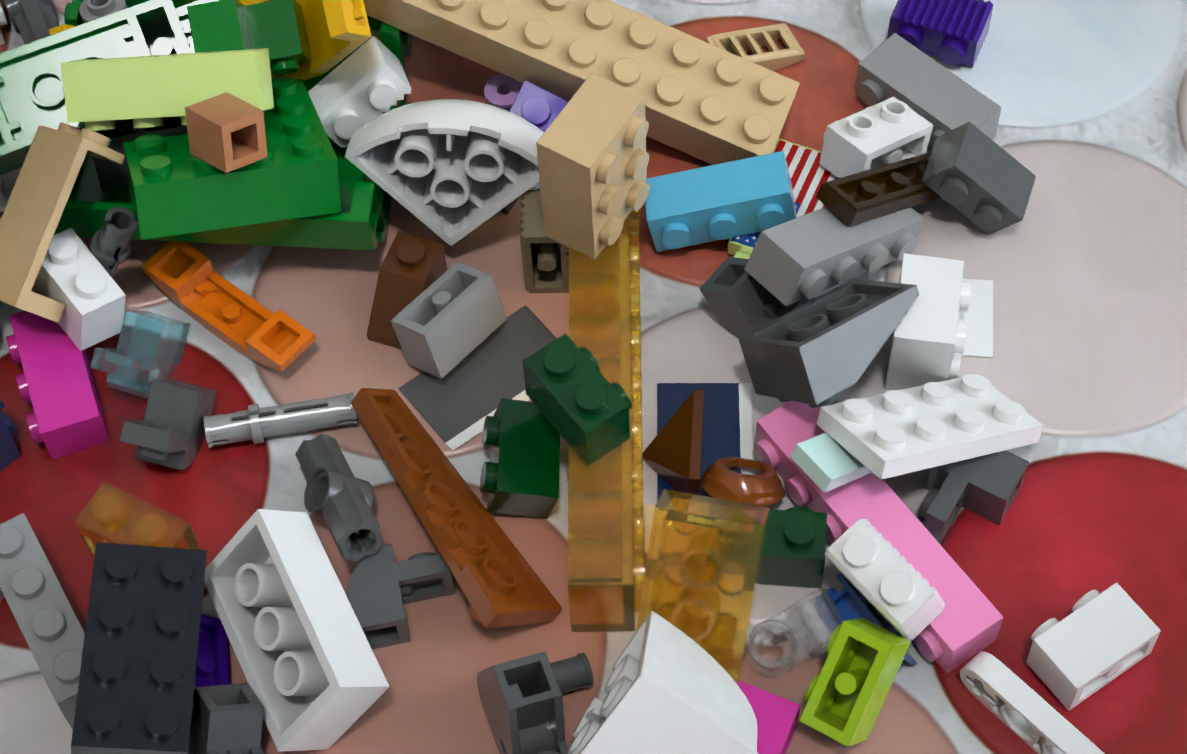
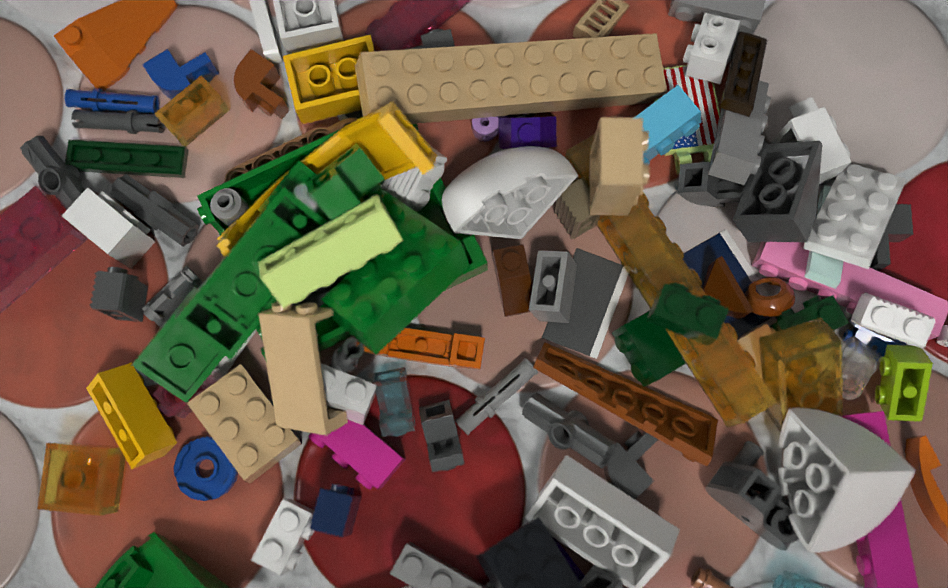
camera: 30 degrees left, 20 degrees up
(125, 519) = (471, 514): clear yellow brick -> none
(226, 132) = (396, 268): nougat brick -> none
(979, 178) = (783, 42): dark grey brick -> none

